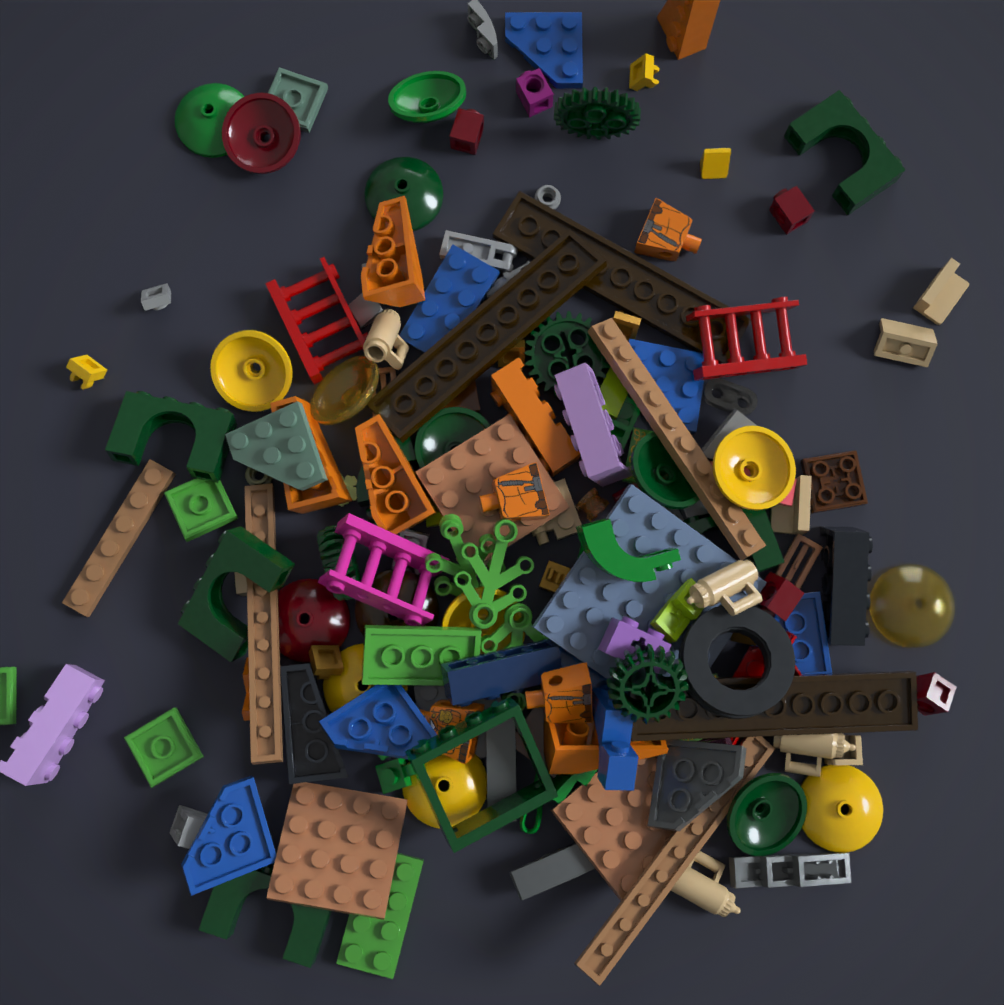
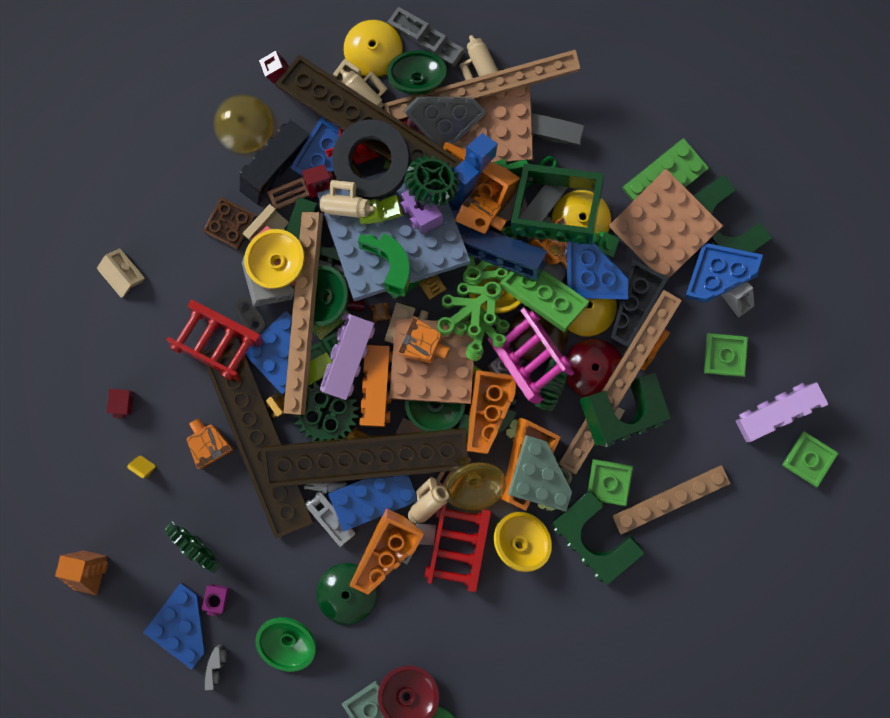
camera: 145 degrees left, 5 degrees up
(86, 369) = (622, 621): yellow tile -> none
(156, 297) = (548, 637): light grey plate -> none
(326, 660) = (599, 334): pearl gold tile -> none
(467, 131) = (277, 604): dark red brick -> none
(548, 191) = (254, 523): light grey plate -> none
(642, 73) = (138, 561): yellow tile -> none
(840, 119) = (45, 389): dark green arch -> none
(942, 293) = (73, 285): tan panel -> none

